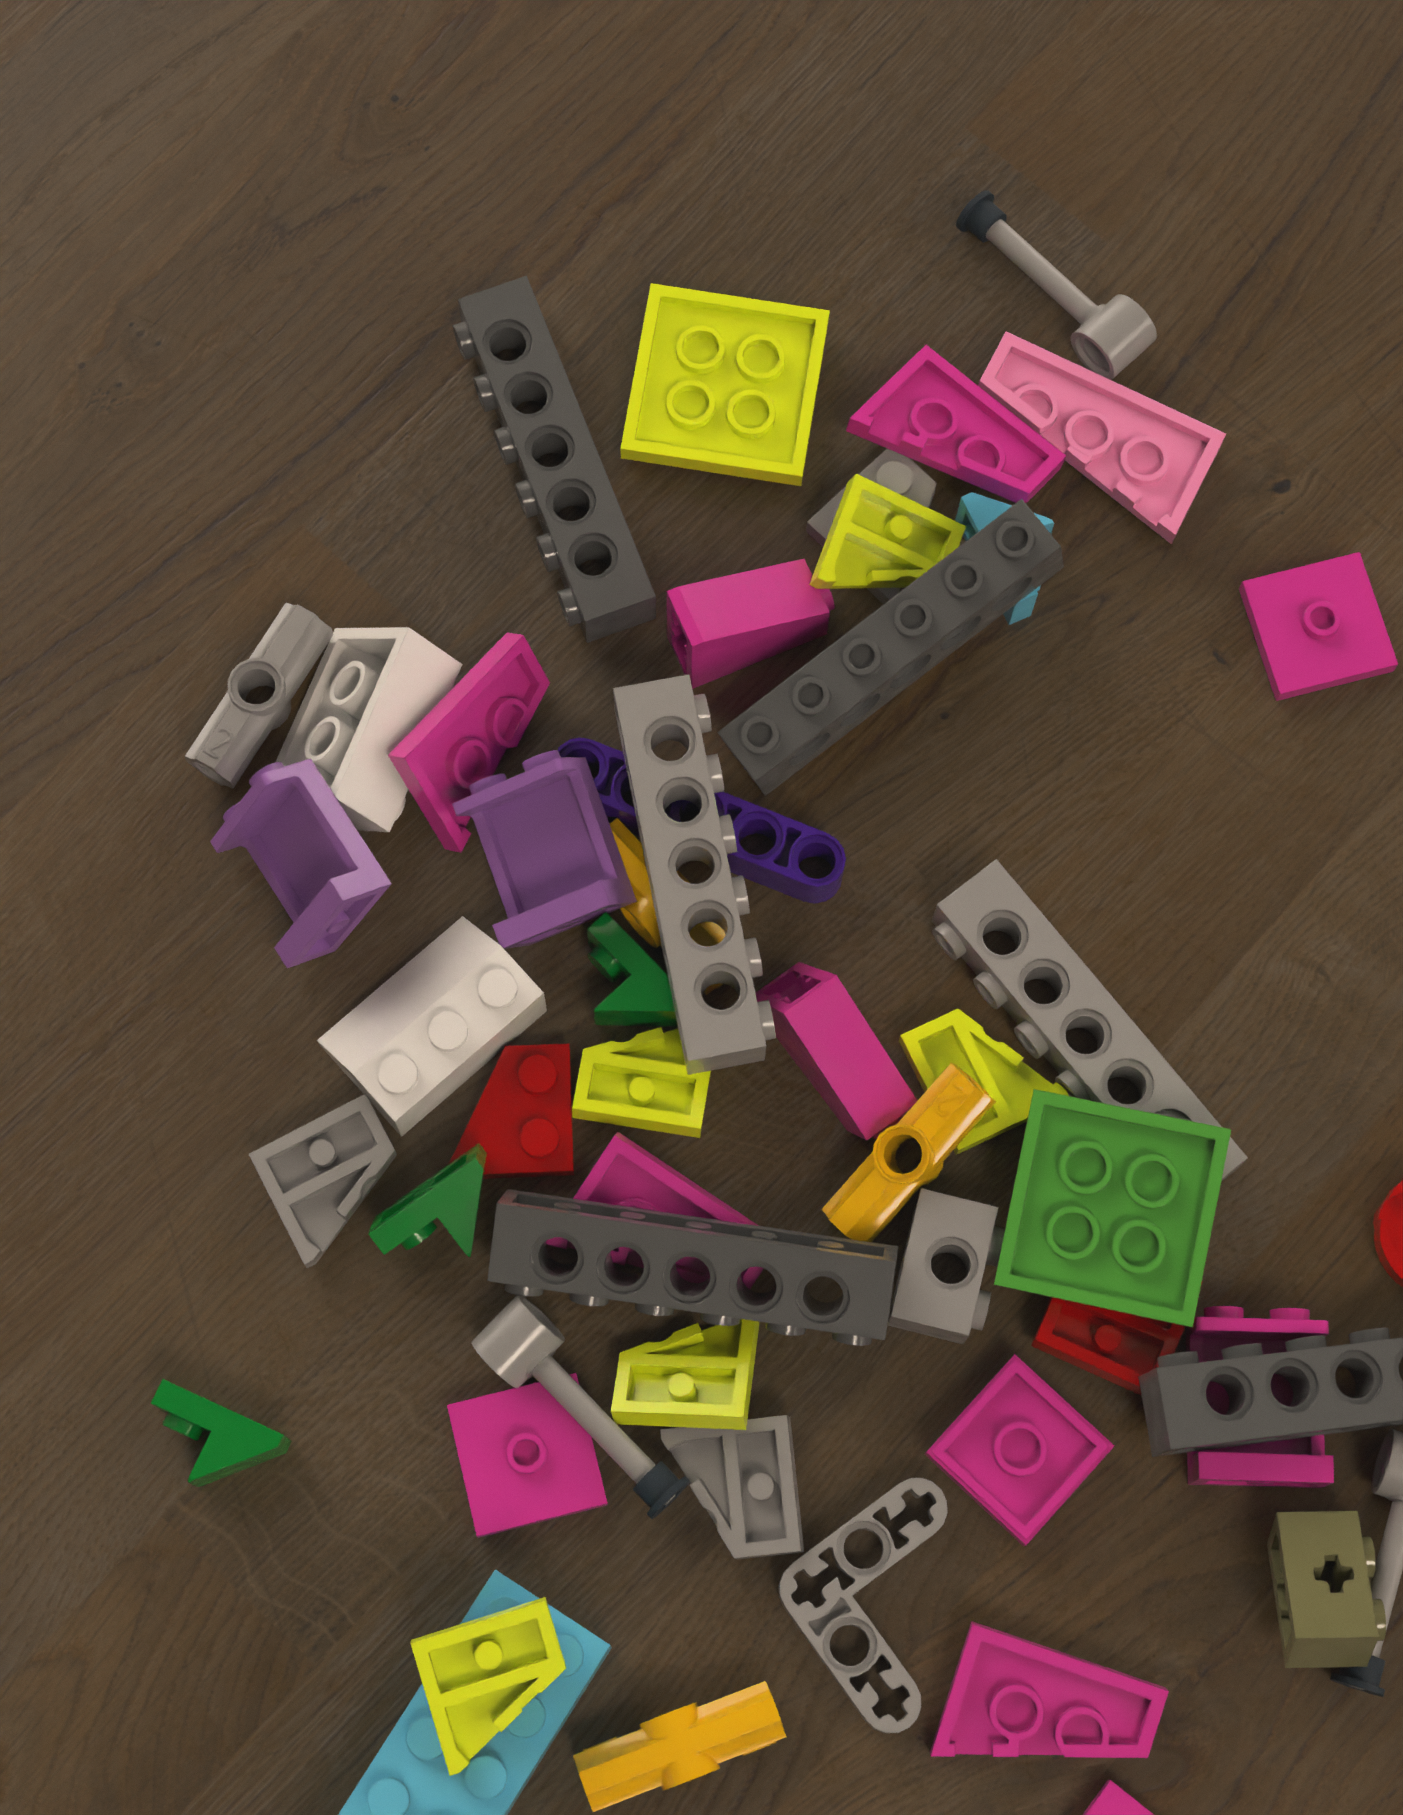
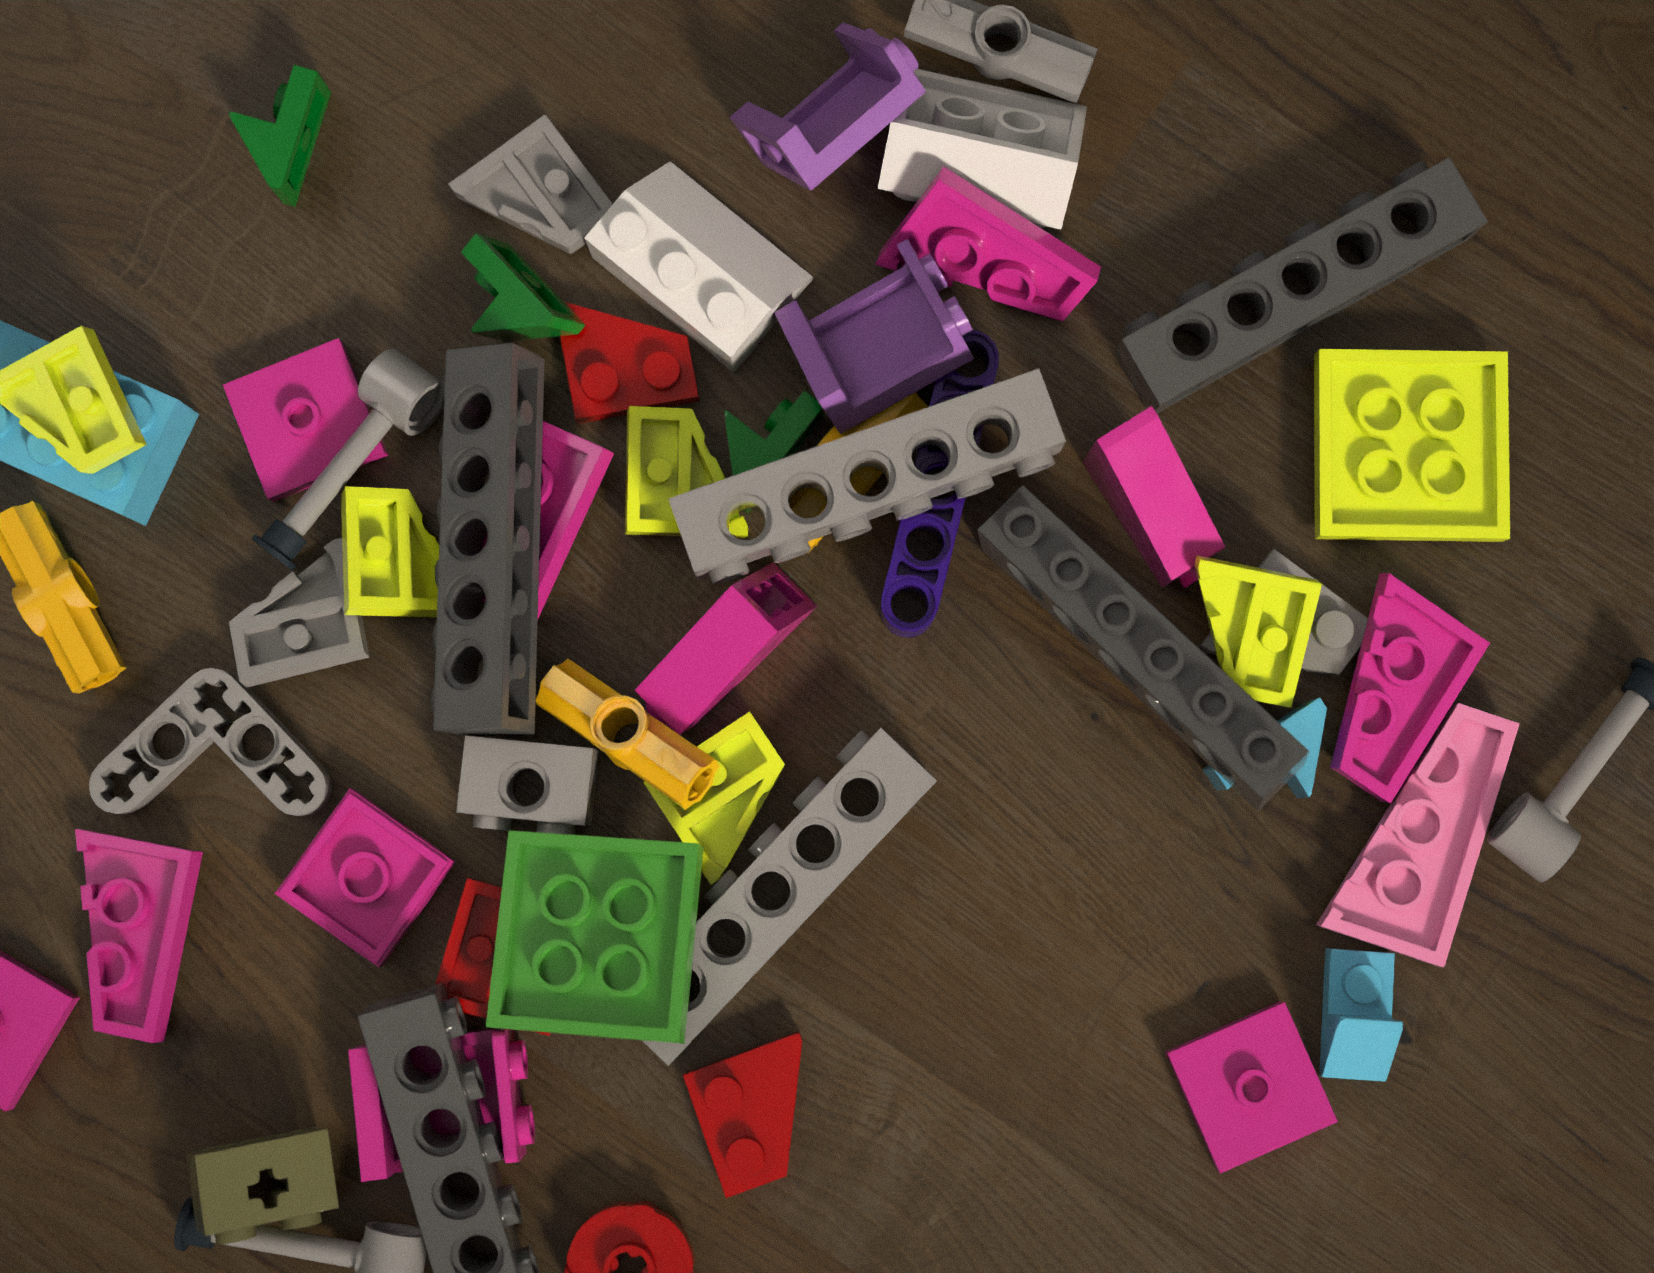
camera: 85 degrees right, 10 degrees up
(1261, 521) = (1357, 1015): none -> medium azure slope
(1295, 1097) = (748, 1111): none -> red wing

